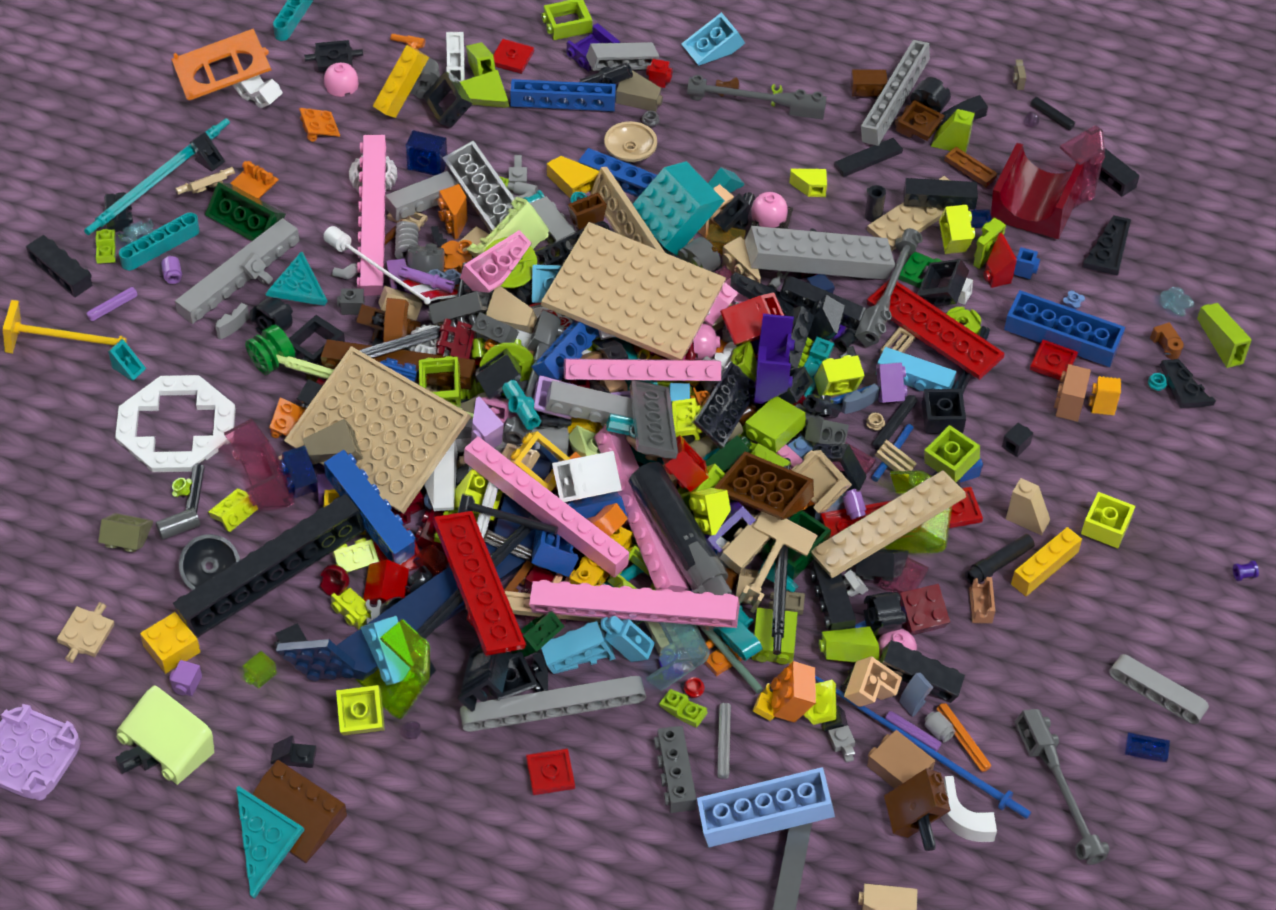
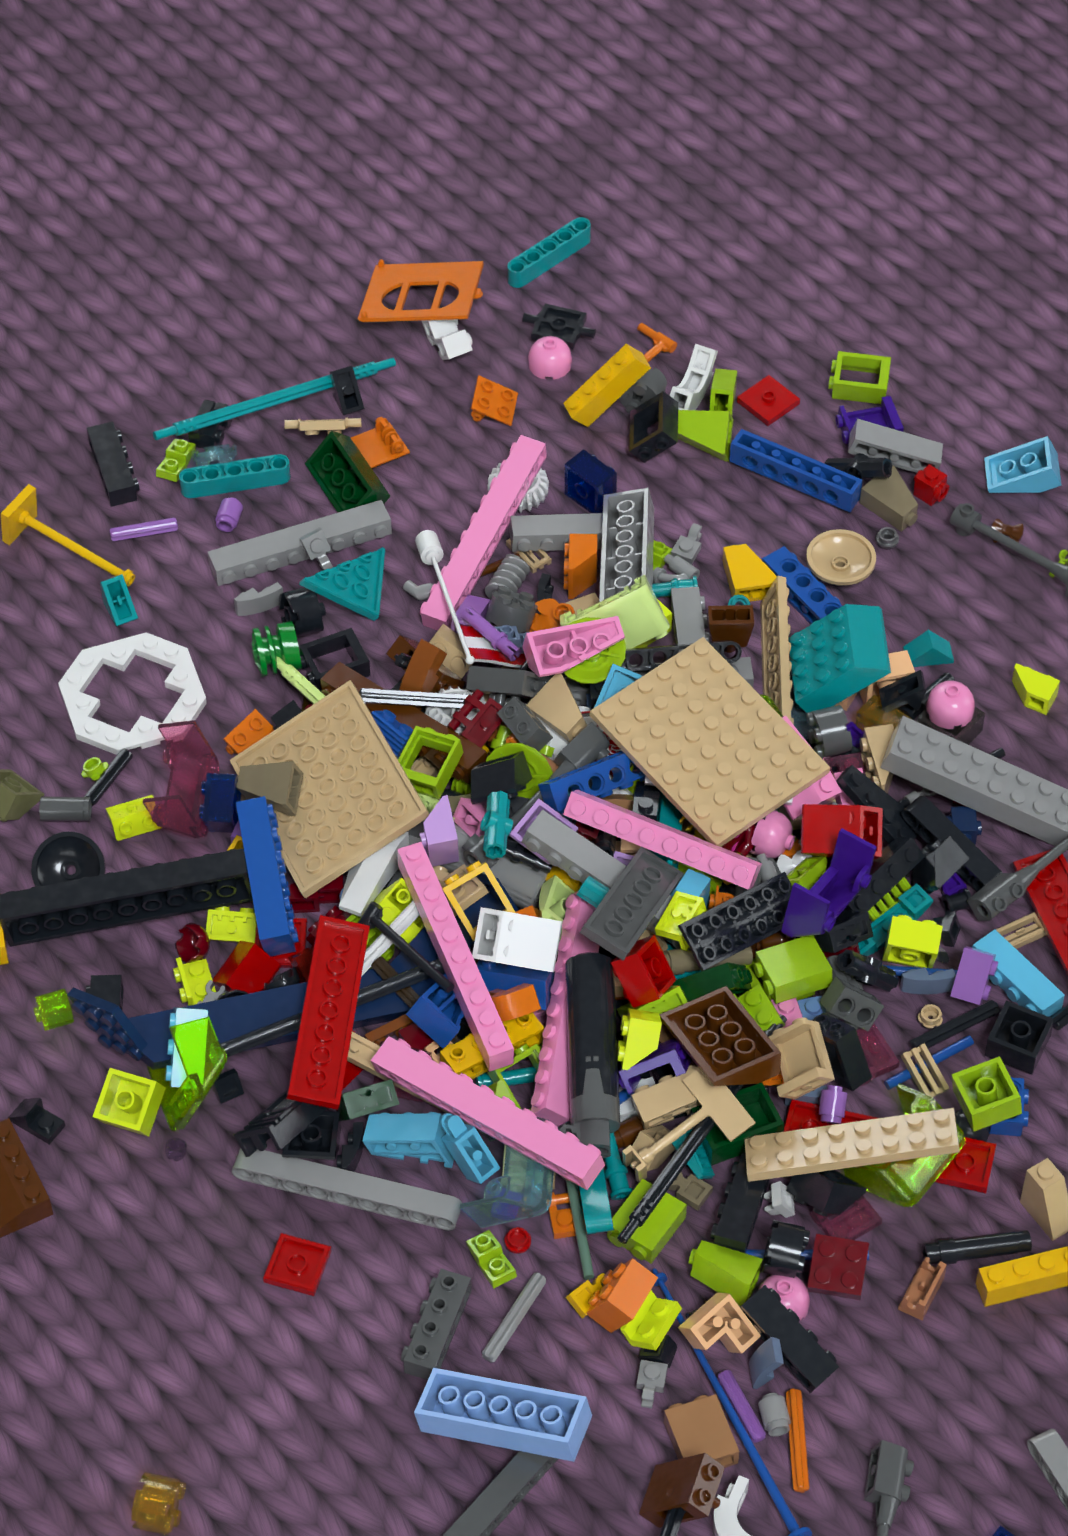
camera: 30 degrees right, 0 degrees up
(351, 301) = (404, 624): dark grey brick -> none

